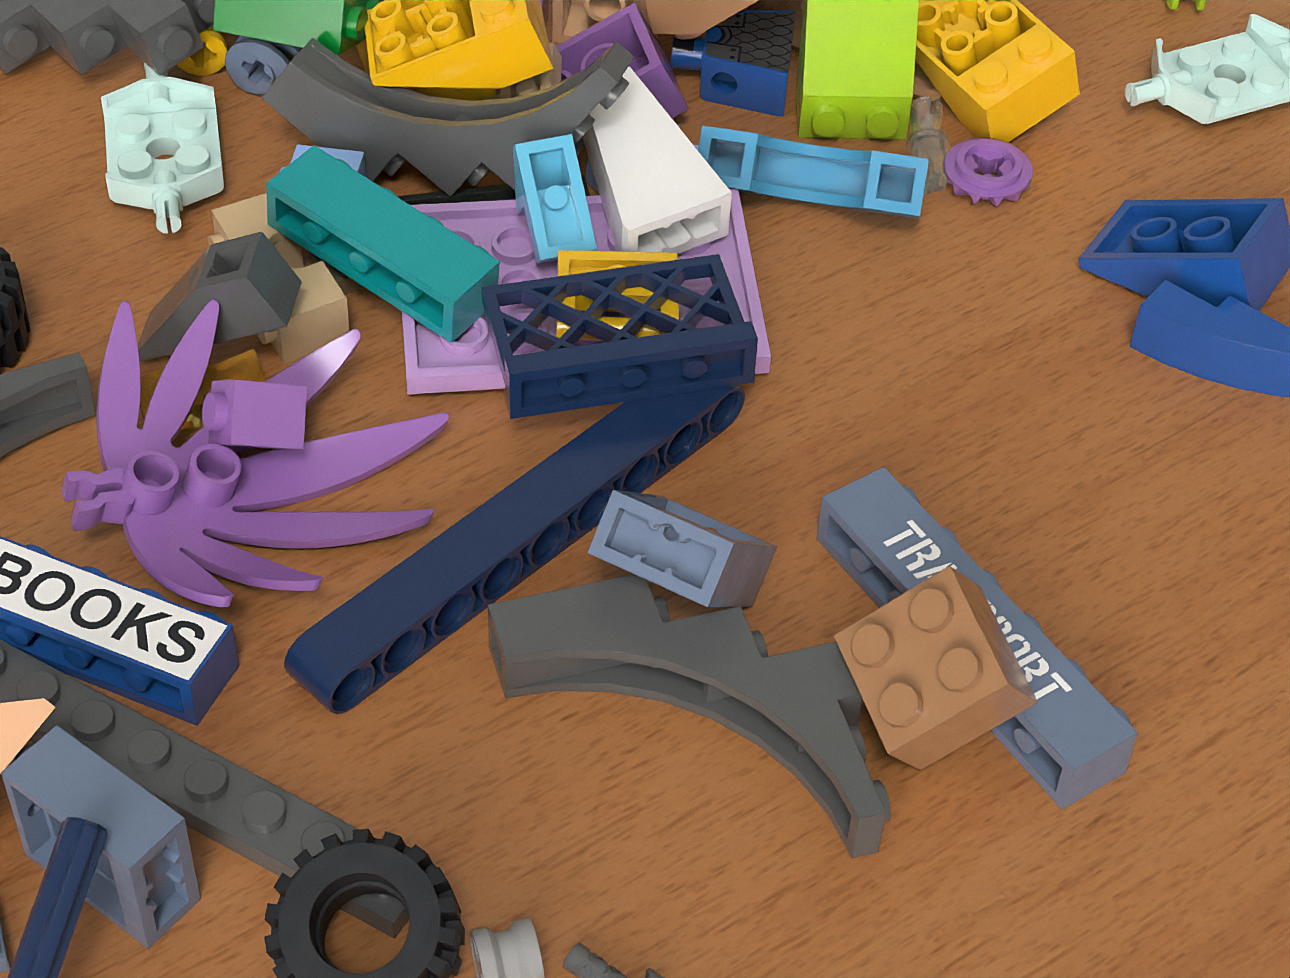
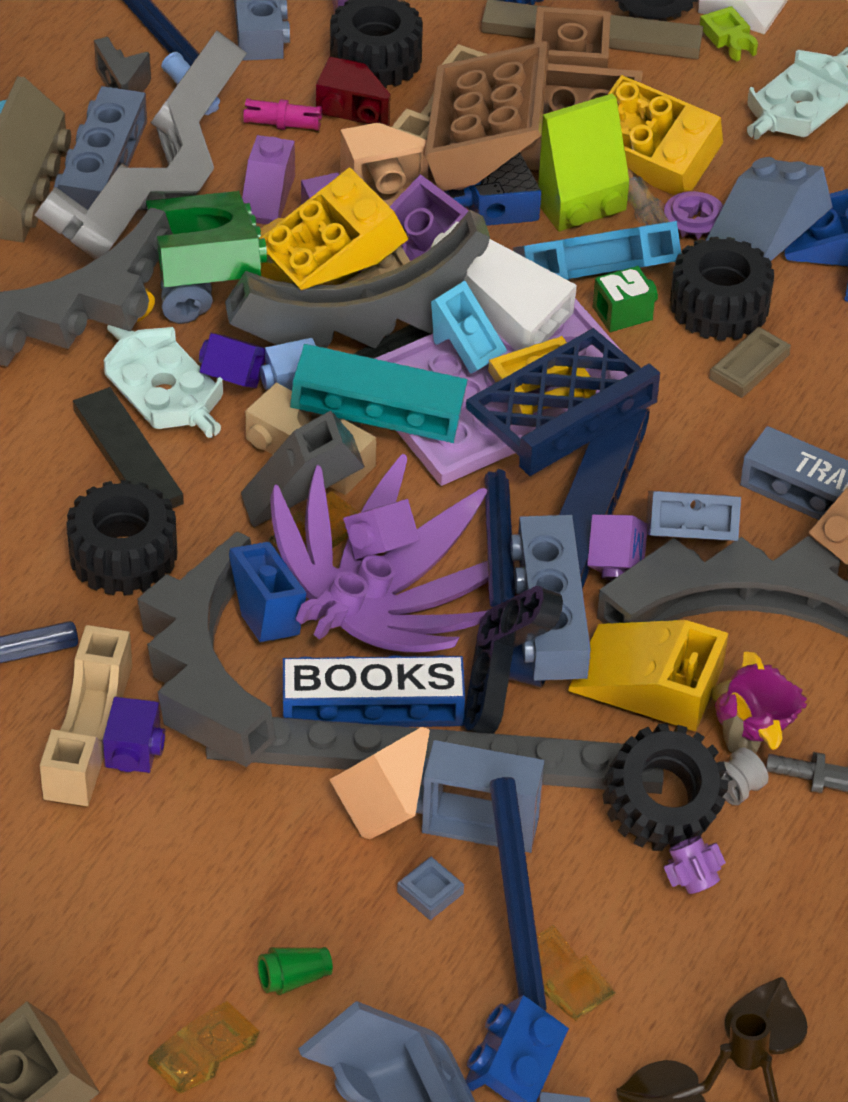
camera: 25 degrees left, 0 degrees up
(54, 440) = (266, 591): none -> blue slope
(58, 218) = (124, 443): none -> pearl dark grey tile
(245, 144) = (232, 360): none -> dark purple brick
(293, 617) = (498, 633): none -> black beam
(397, 591) = (550, 560): none -> sand blue brick
(406, 494) = (498, 538): none -> dark blue axle
(498, 752) = (655, 668): none -> yellow slope
(554, 550) = (616, 544): none -> medium lavender brick
(598, 862) = (756, 705): none -> magenta hair
(816, 241) = (624, 298): none -> green brick
(938, 380) = (750, 362): none -> dark tan tile
(952, 269) = (721, 288): none -> black tyre
(1081, 192) = (773, 205): none -> sand blue slope

